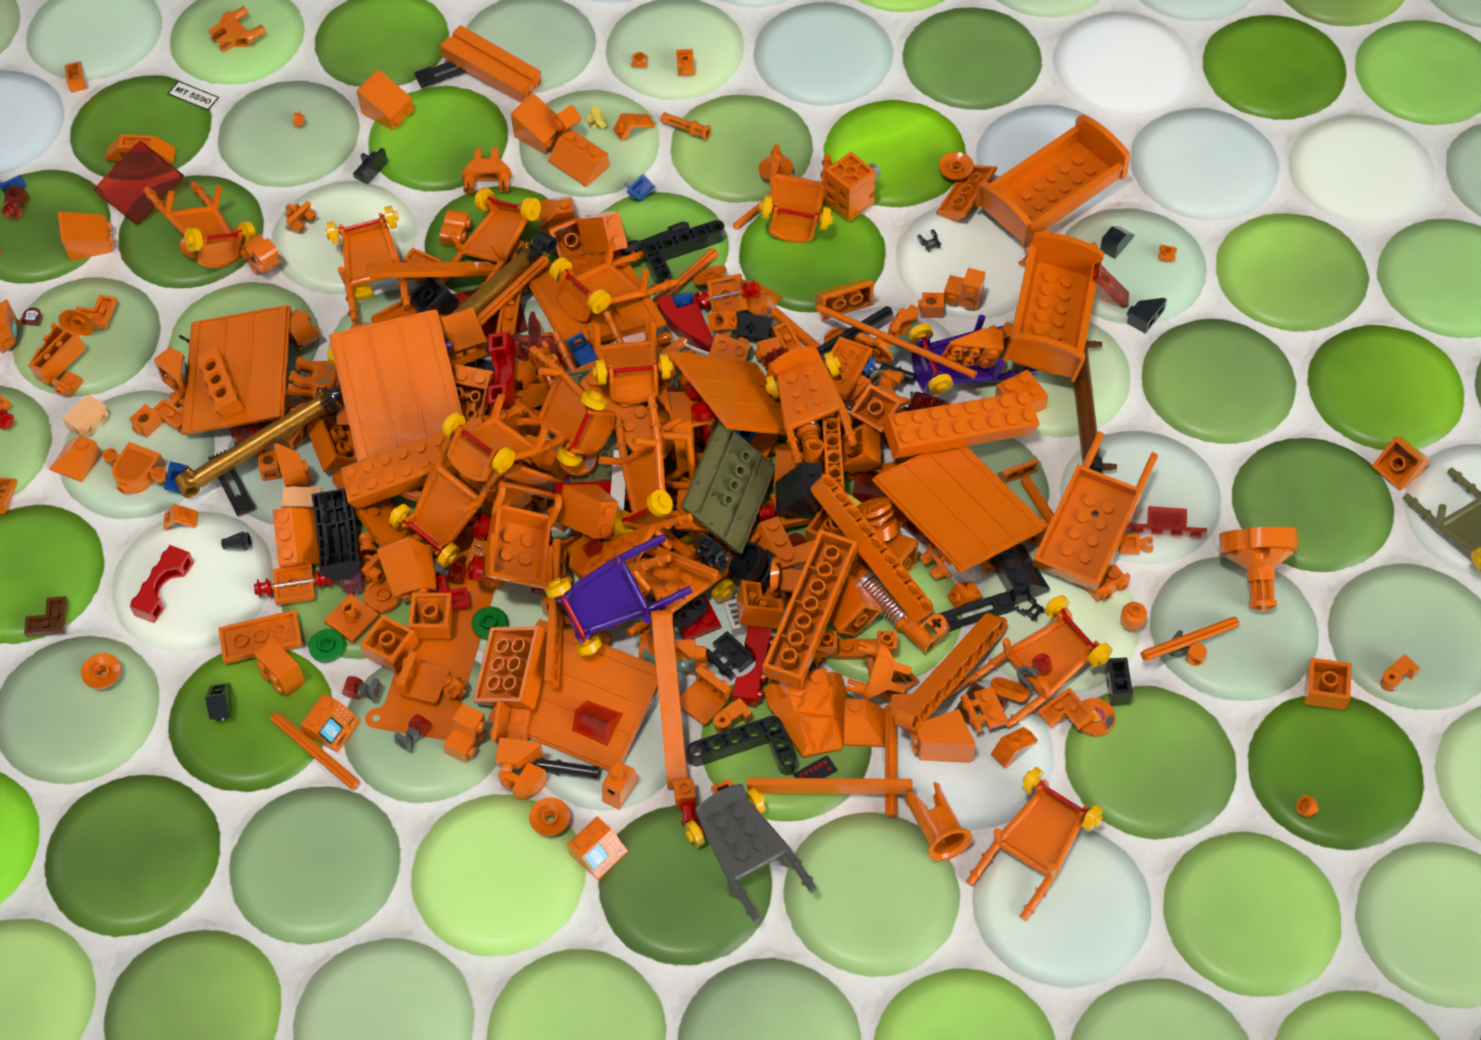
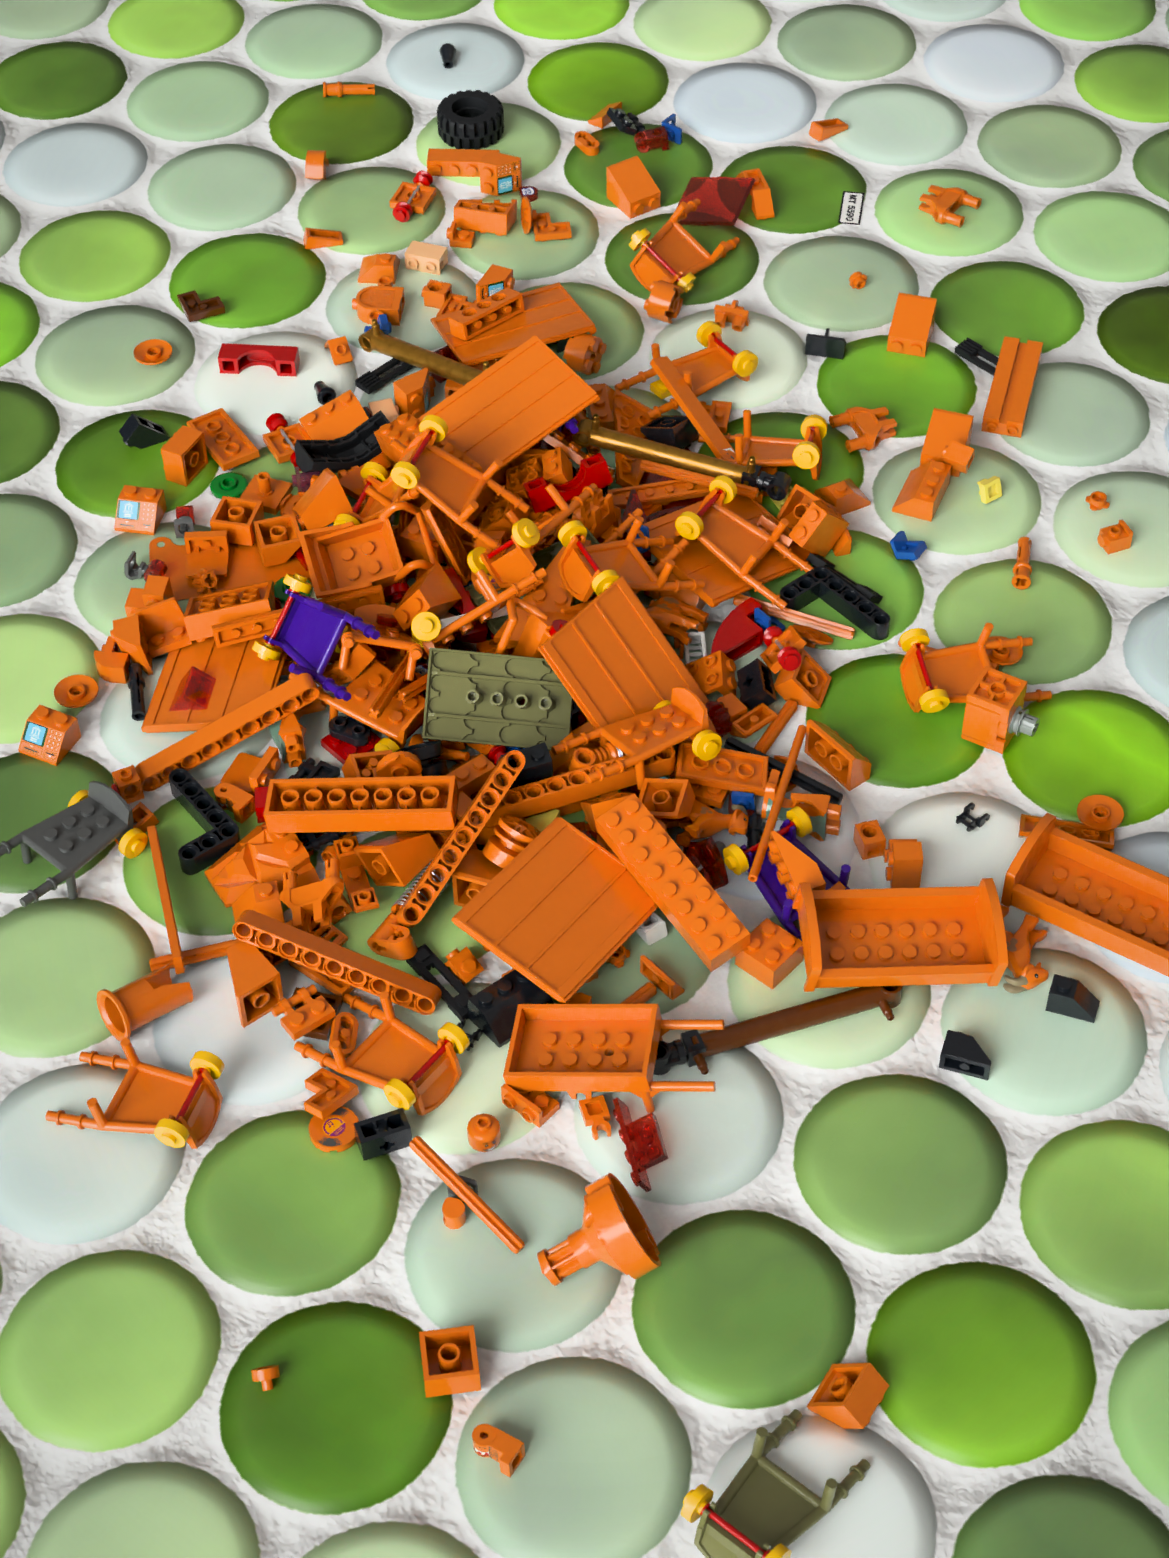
camera: 70 degrees right, 10 degrees down
(314, 750) = (105, 516): orange axle -> none
(457, 222) = (775, 424): orange brick -> none
(462, 330) = (623, 451): orange tile -> none
(619, 781) = (125, 729): orange torso -> none
(628, 121) = (1000, 517): orange bracket -> none
(710, 553) = (401, 705): black gear -> none
(722, 321) = (741, 653): orange brick -> none
(817, 769) = (191, 891): black sticker -> none
(1011, 744) = (272, 1055): orange bracket -> none
(1040, 665) = (371, 1042): leg -> none
(1111, 285) = (977, 998): clear red tile -> none
(1167, 253) = (1082, 1065): orange plate -> none

